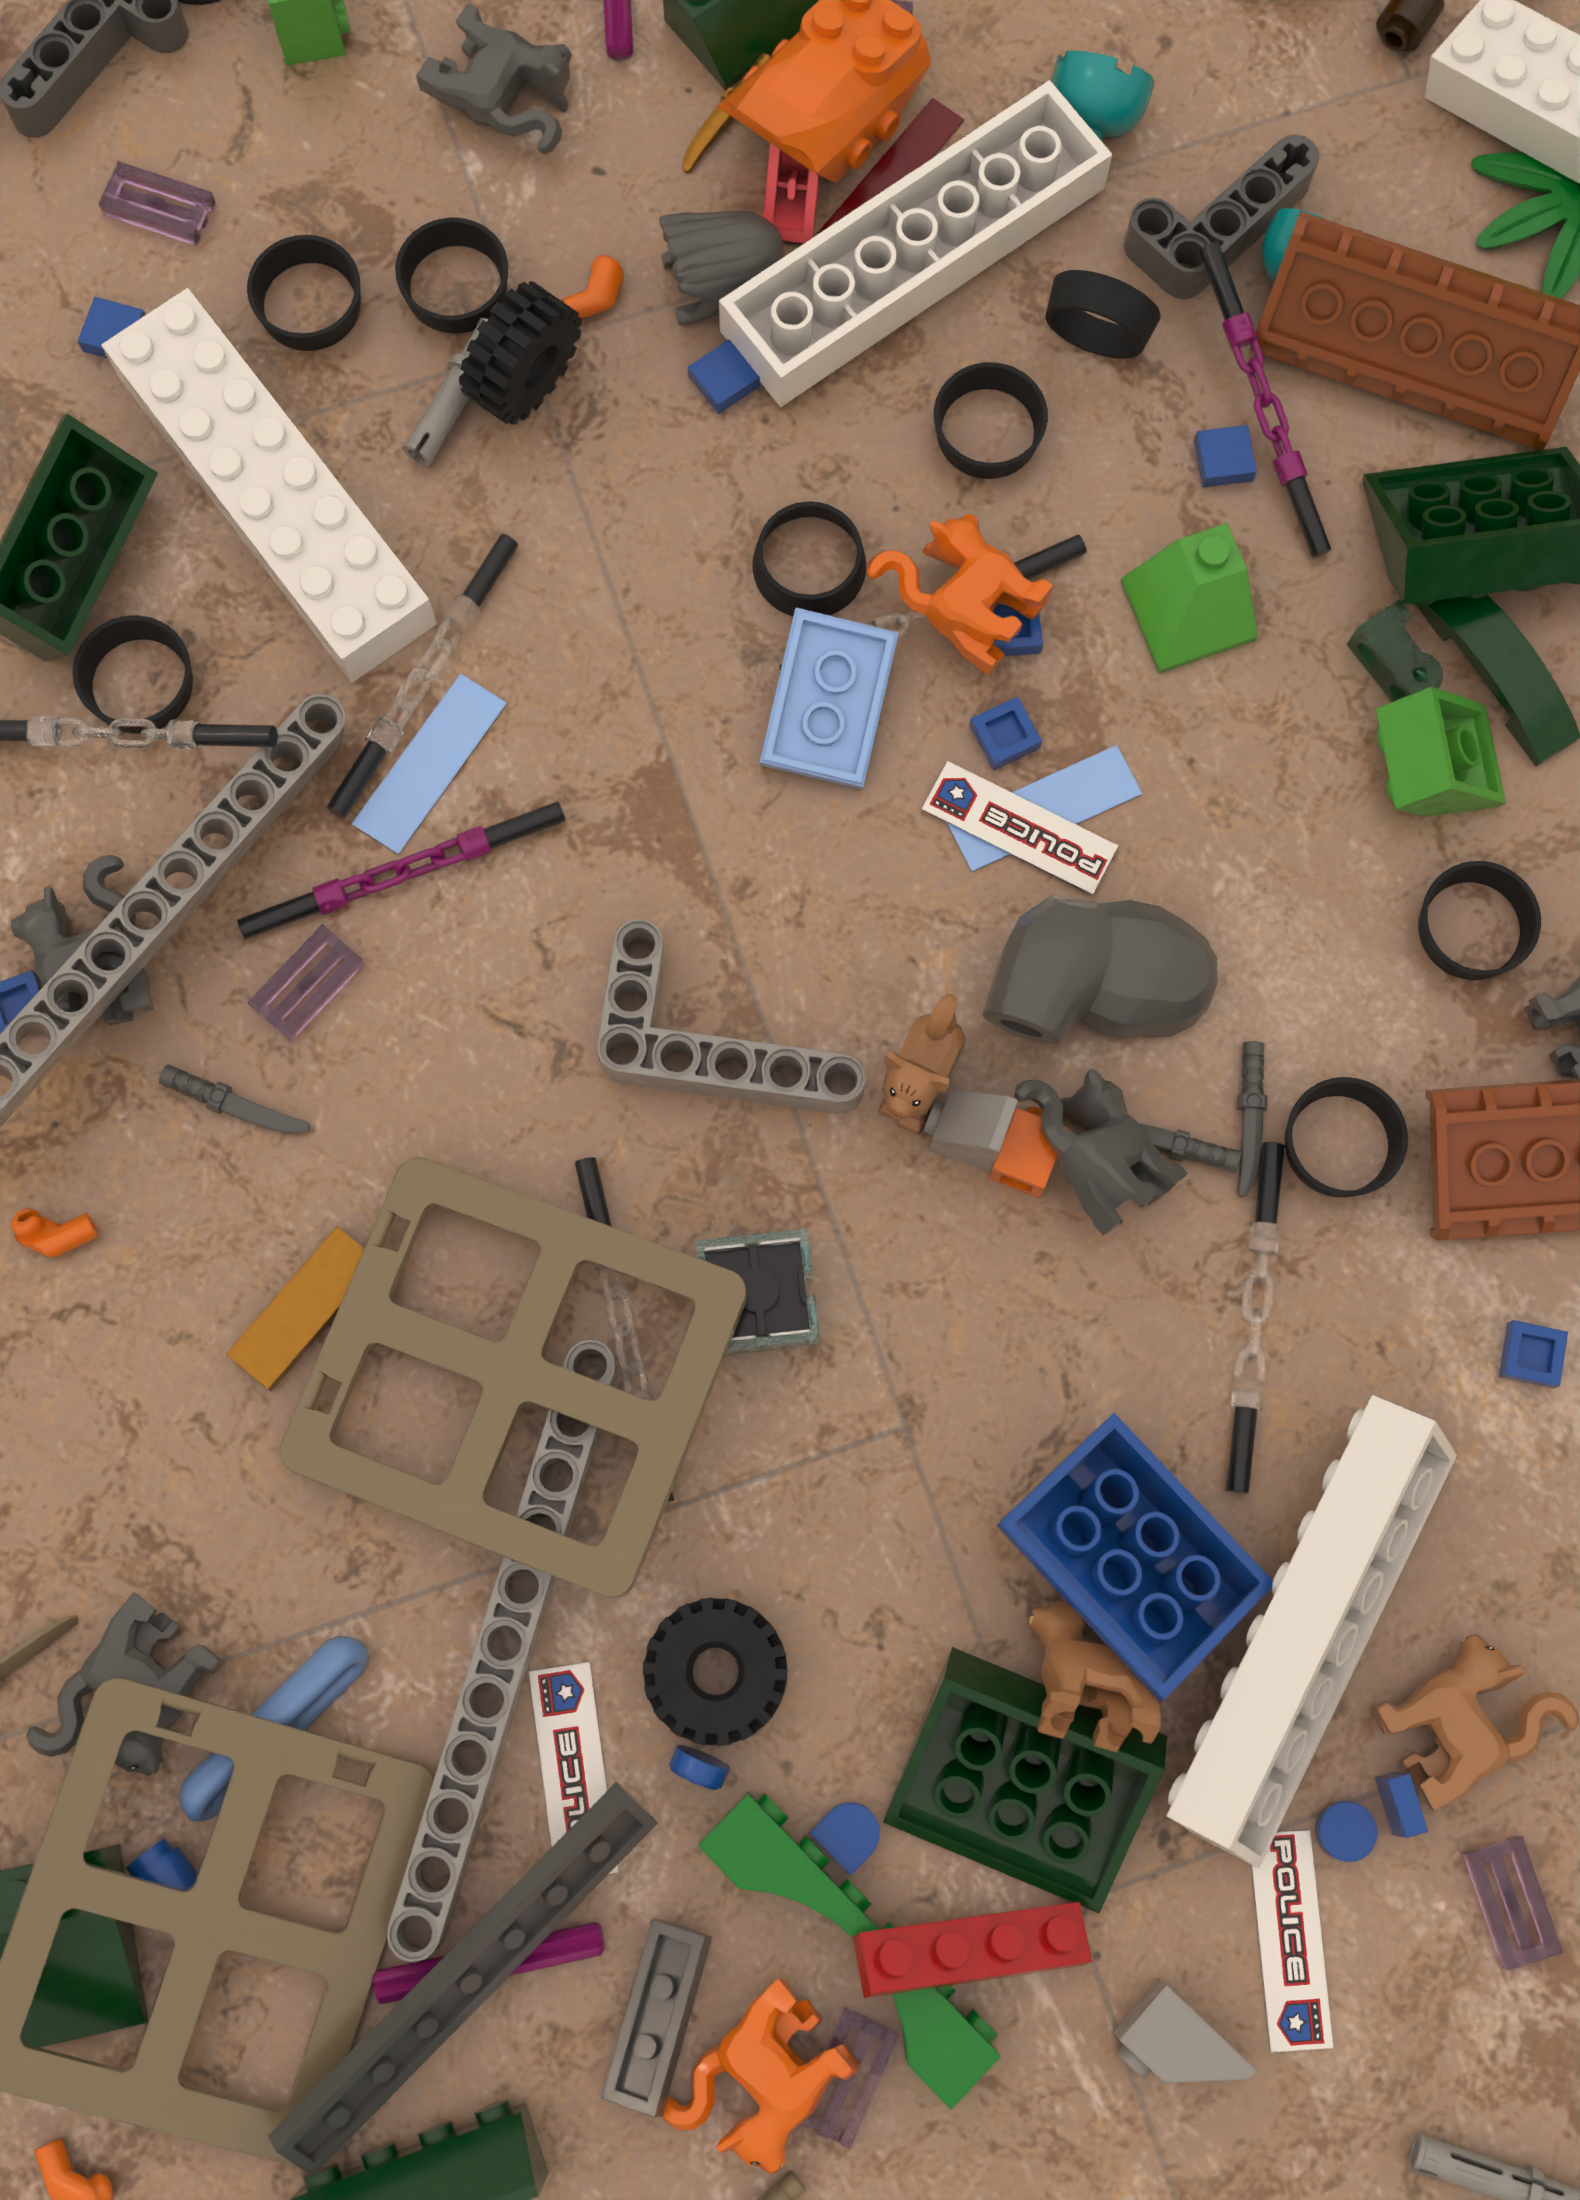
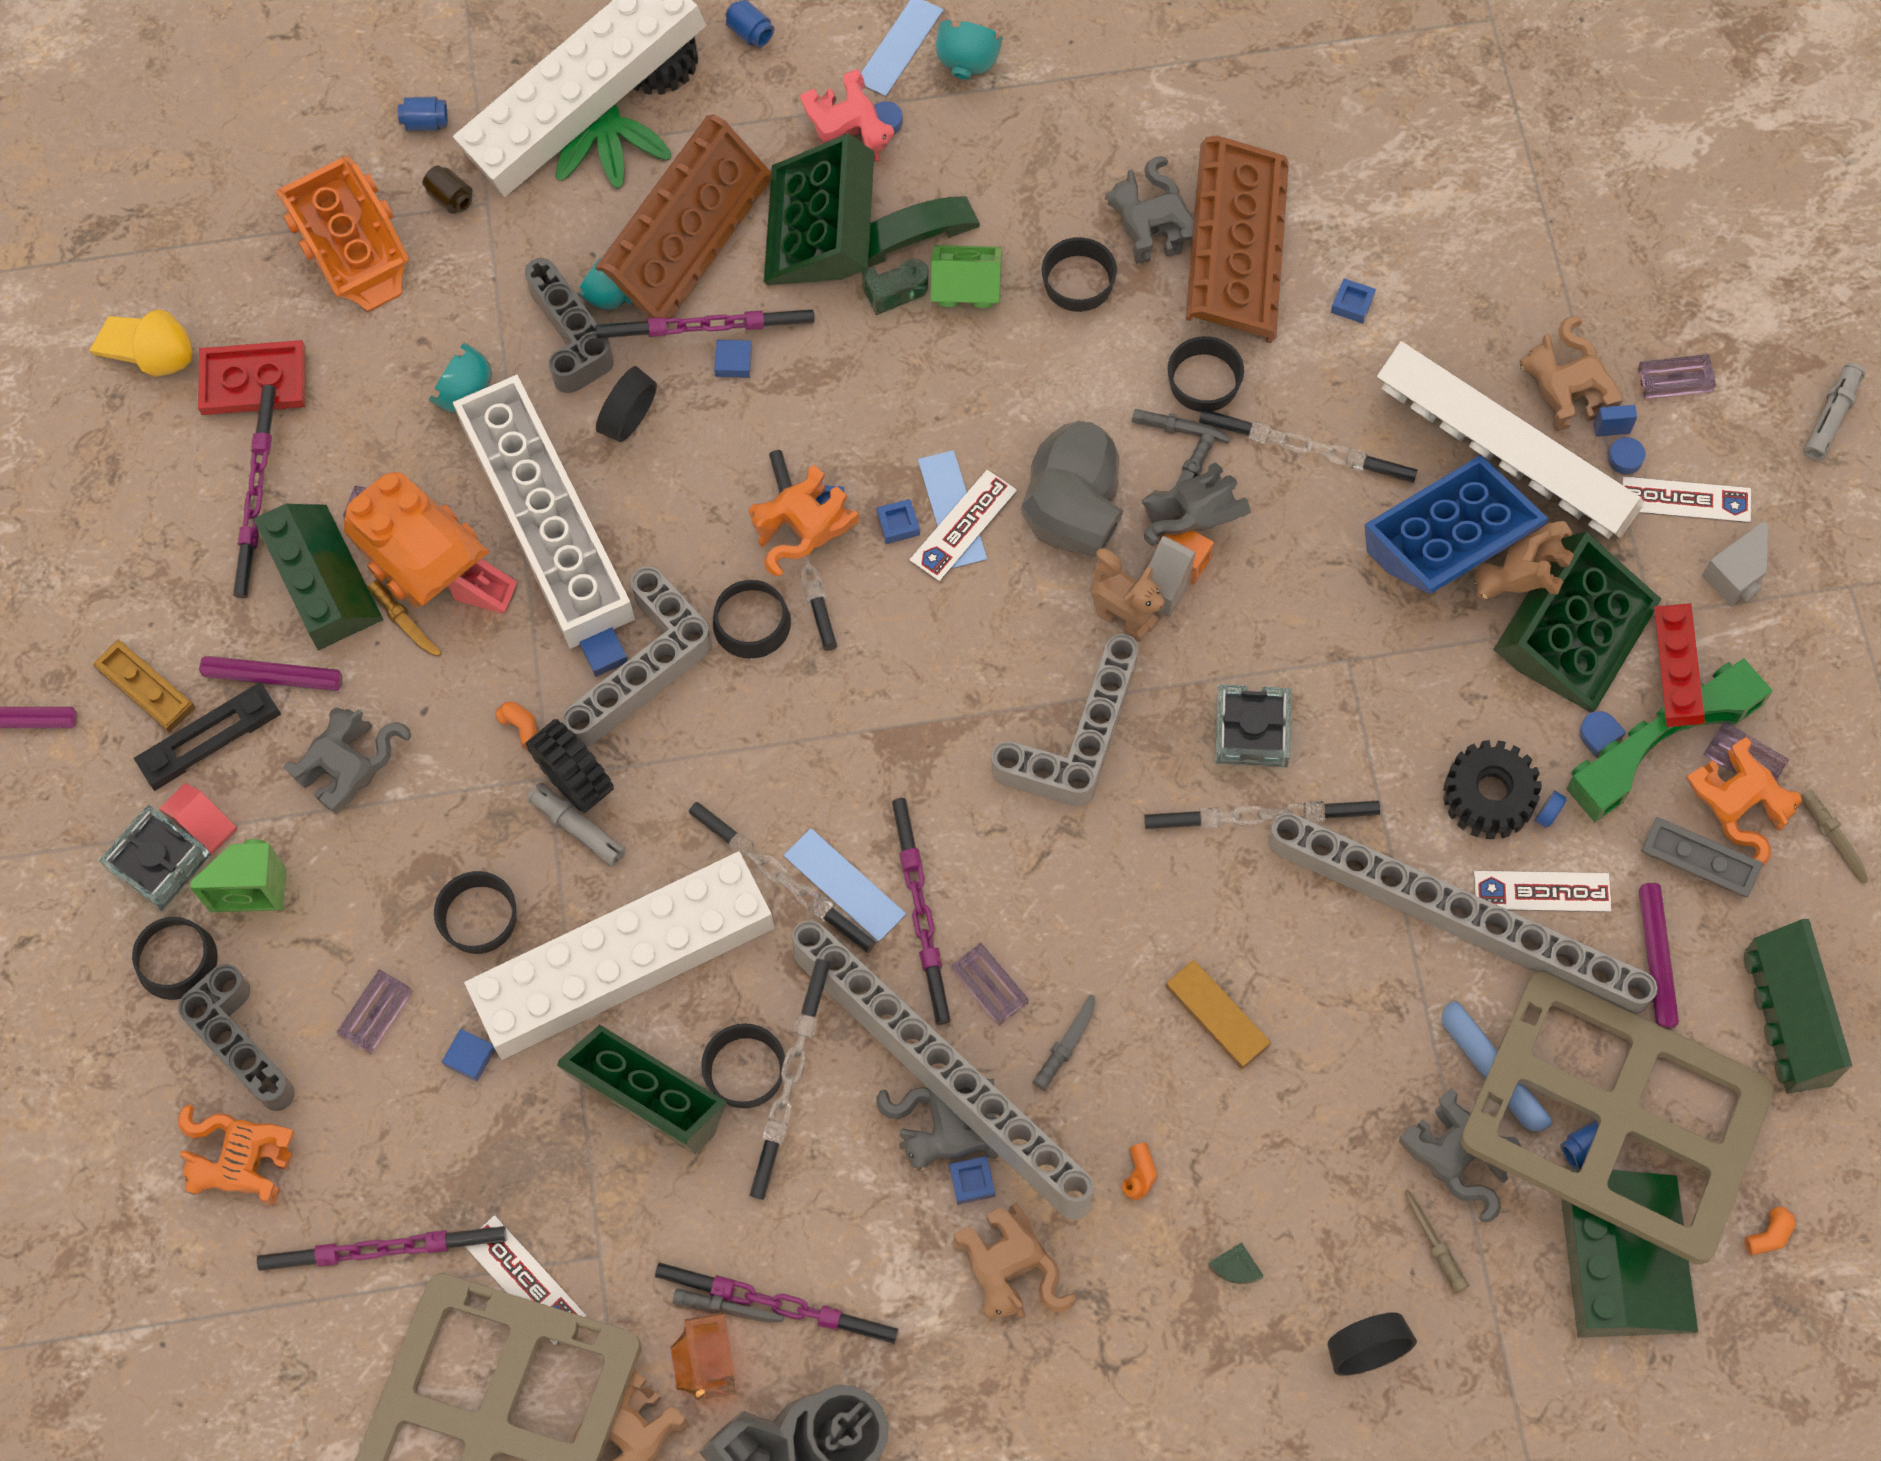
camera: 75 degrees left, 10 degrees down
(442, 234) = (474, 783): black tyre -> none
(462, 1981) = (1677, 968): dark grey plate -> none
(517, 1374) = (1288, 875): dark tan window -> none
(711, 432) = (645, 663): none -> light grey beam
(716, 255) = (523, 627): dark grey hair -> none
(828, 698) = (855, 619): light blue tile -> none
(911, 150) = (502, 549): dark red sticker -> none
(996, 377) = (675, 461): black tyre -> none
(1192, 599) = (831, 393): bright green slope -> none

